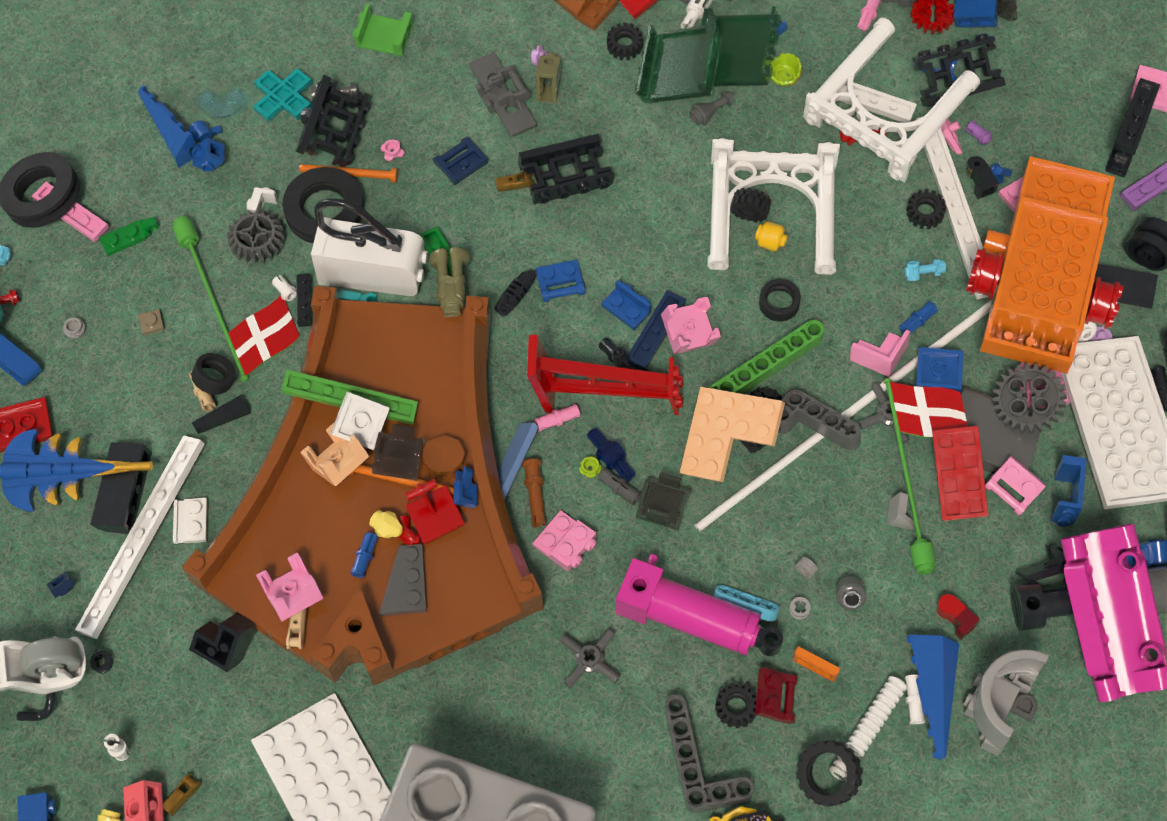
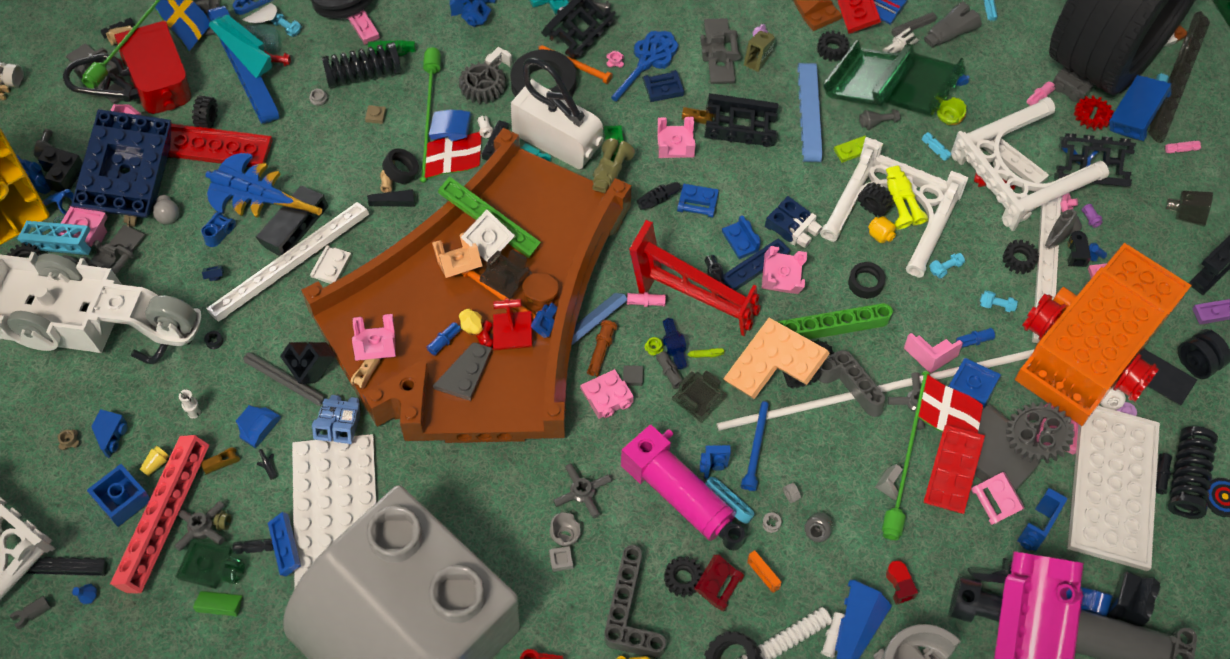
camera: 20 degrees right, 5 degrees down
(39, 528) = (217, 229): none -> blue piece
(73, 289) = (372, 57): none -> black piece
(200, 737) = (256, 424): none -> blue slope
(203, 672) = (283, 378): none -> dark grey axle
(235, 776) = (267, 464): none -> black bar
(244, 301) = (451, 124): none -> blue slope
(287, 687) = (337, 417): none -> medium blue hips
(439, 129) = (656, 57): none -> blue piece
(504, 220) = (676, 140): none -> bright pink panel
(582, 508) = (633, 375): none -> dark grey tile
(591, 700) = (564, 522): none -> light grey hair
(602, 741) = (561, 558): none -> light grey plate
(635, 129) = (810, 112): none -> medium blue beam
(652, 449) = (706, 353): none -> lime piece
(673, 266) = (793, 222): none -> dark blue hips
(697, 155) = (850, 149): none -> lime plate
(713, 566) = (714, 457): none -> blue bracket
(757, 574) = (749, 481): none -> blue piece
(772, 184) = (901, 190): none -> neon yellow piece
(785, 116) = (936, 146): none -> medium azure axle
(849, 257) = (940, 269): none -> medium azure bar
(957, 156) = (1064, 226): none -> dark grey piece
(1038, 17) = (1183, 147): none -> bright pink axle
(1076, 83) = (1192, 206): none -> clear smoke torso

